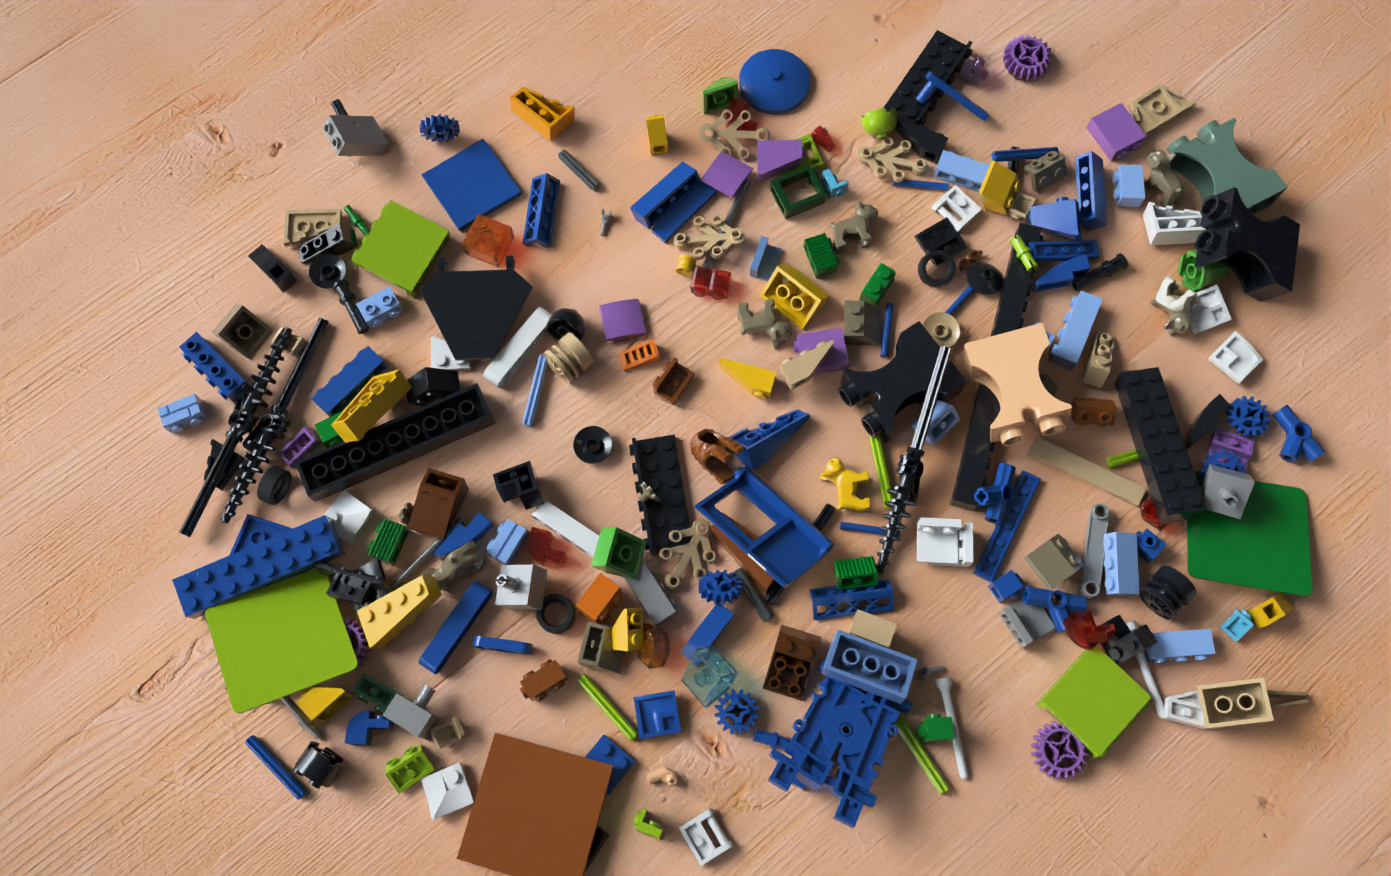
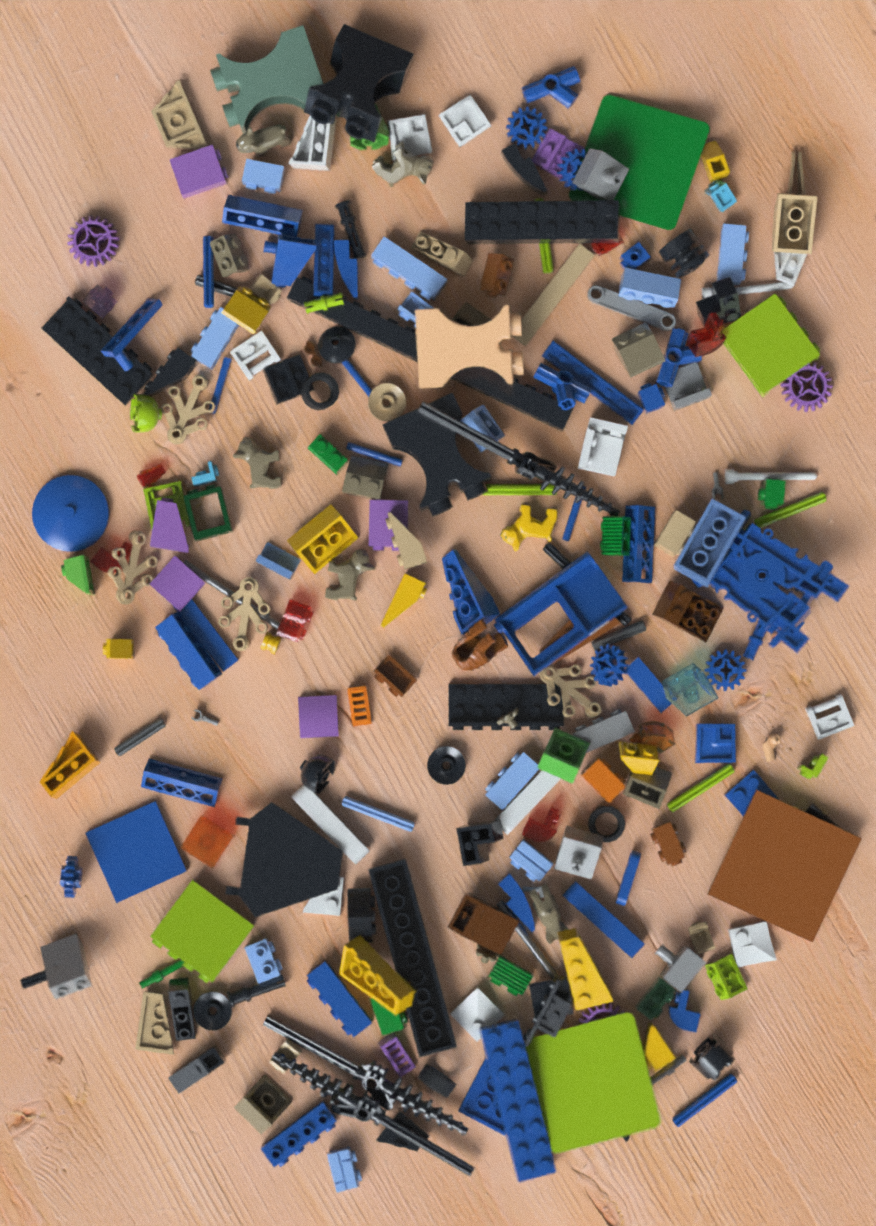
camera: 80 degrees left, 15 degrees up
(566, 360) = (355, 776): tan wheel -> none
(586, 509) = (511, 780): none -> light blue brick
(821, 255) = (283, 504): green brick -> none

